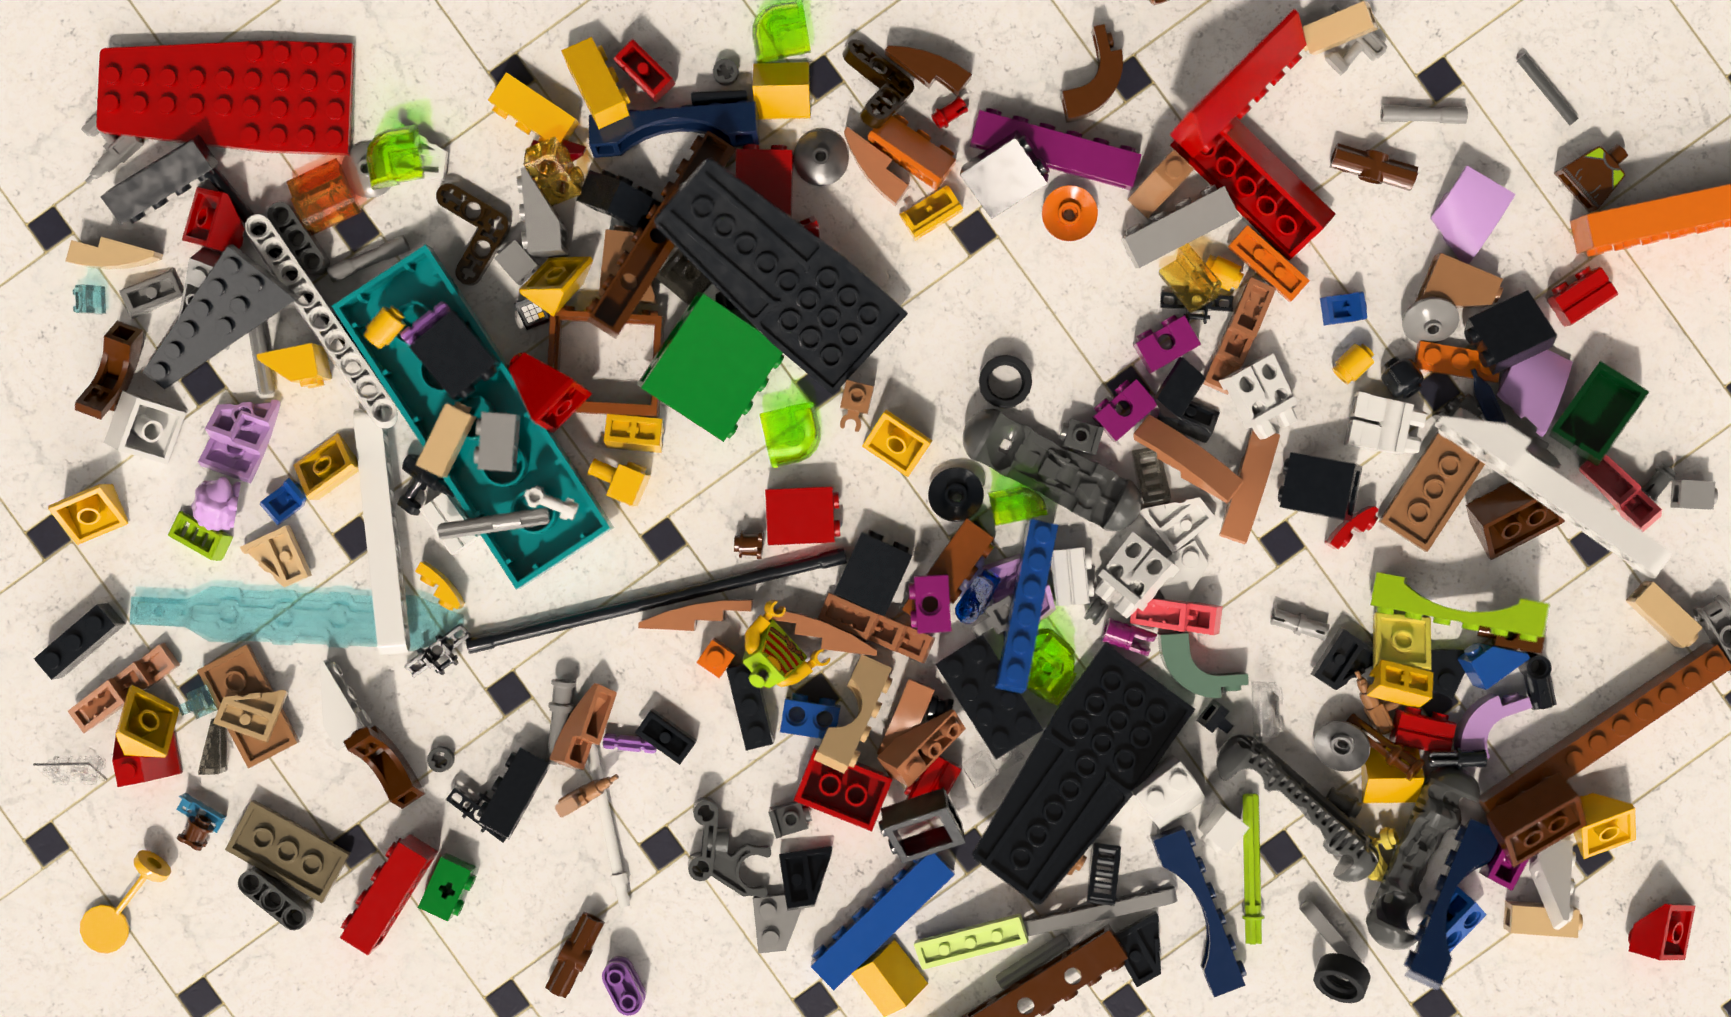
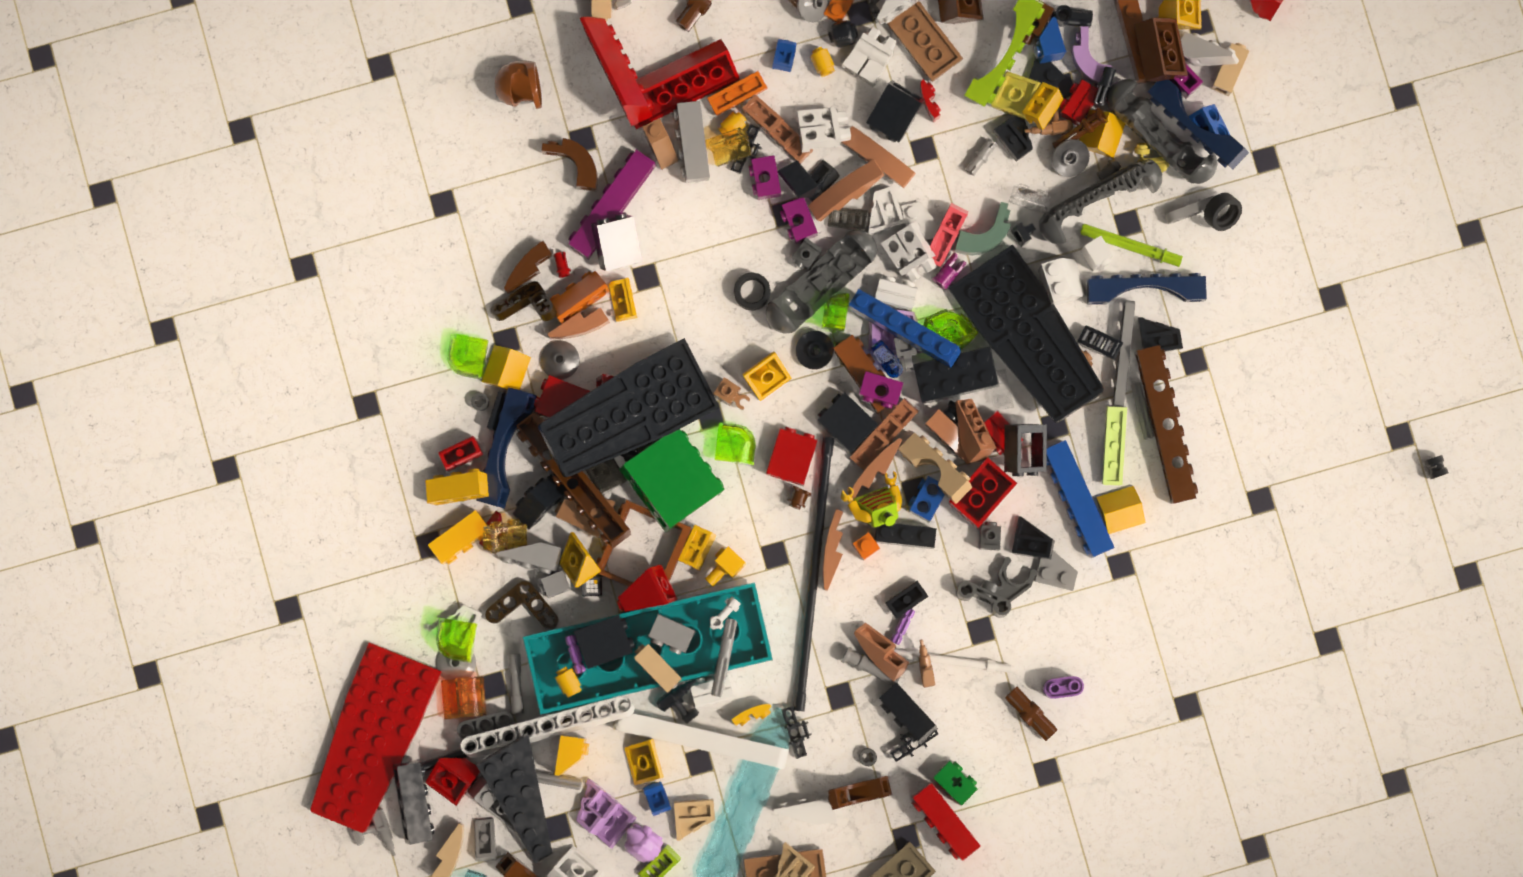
camera: 65 degrees left, 5 degrees down
(1073, 199) = (655, 200): orange dish -> none
(1096, 611) = (925, 286): dark grey bush -> none

